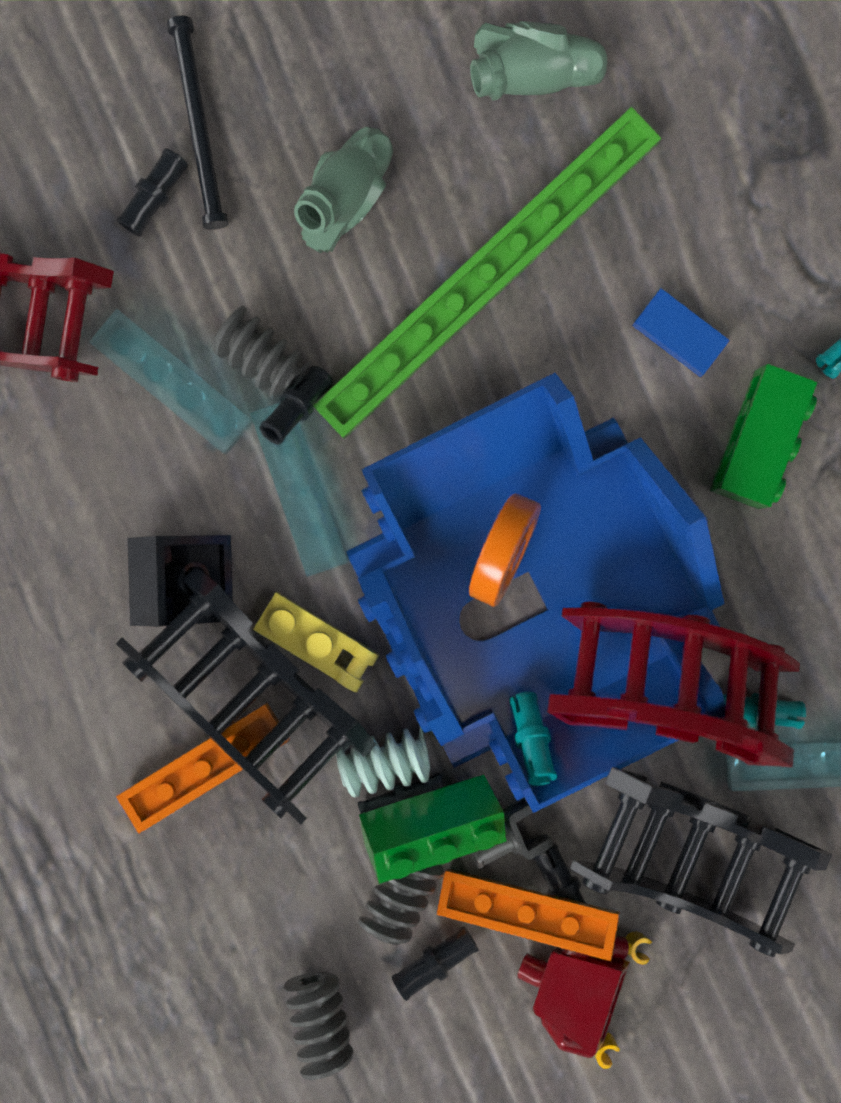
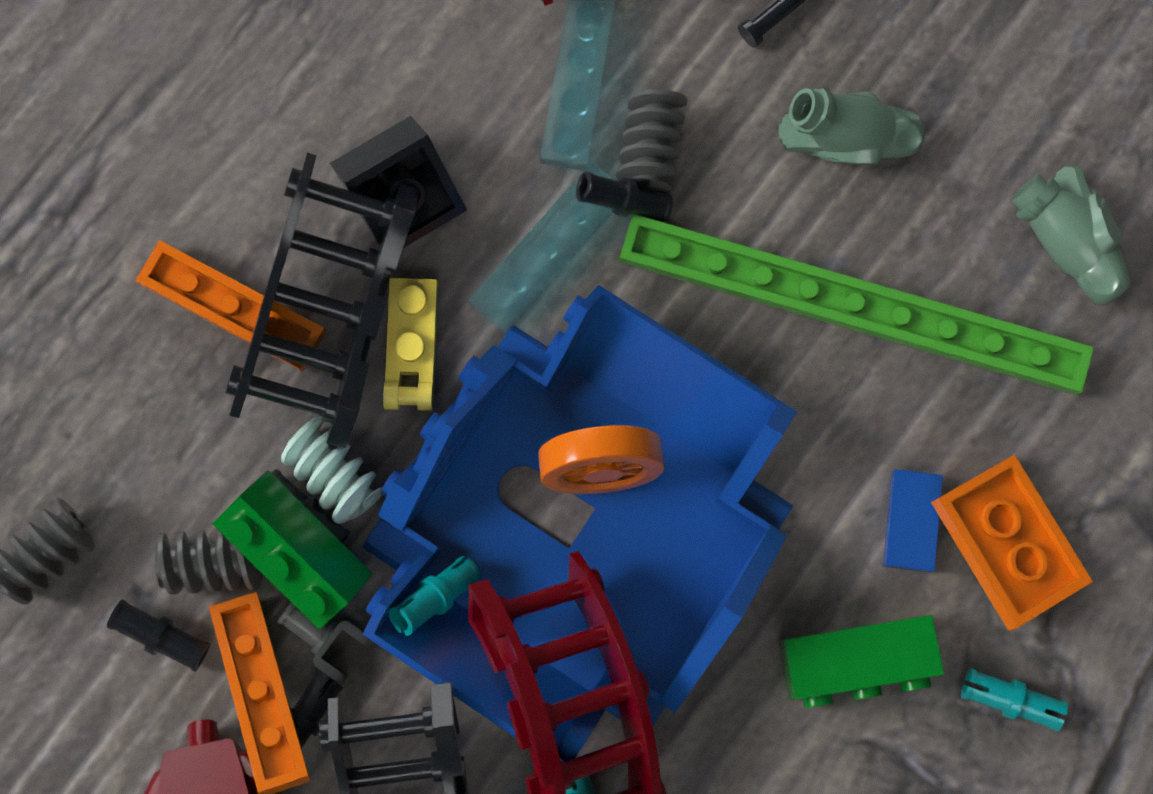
camera: 60 degrees right, 10 degrees down
(744, 267) = (1011, 543): none -> orange plate

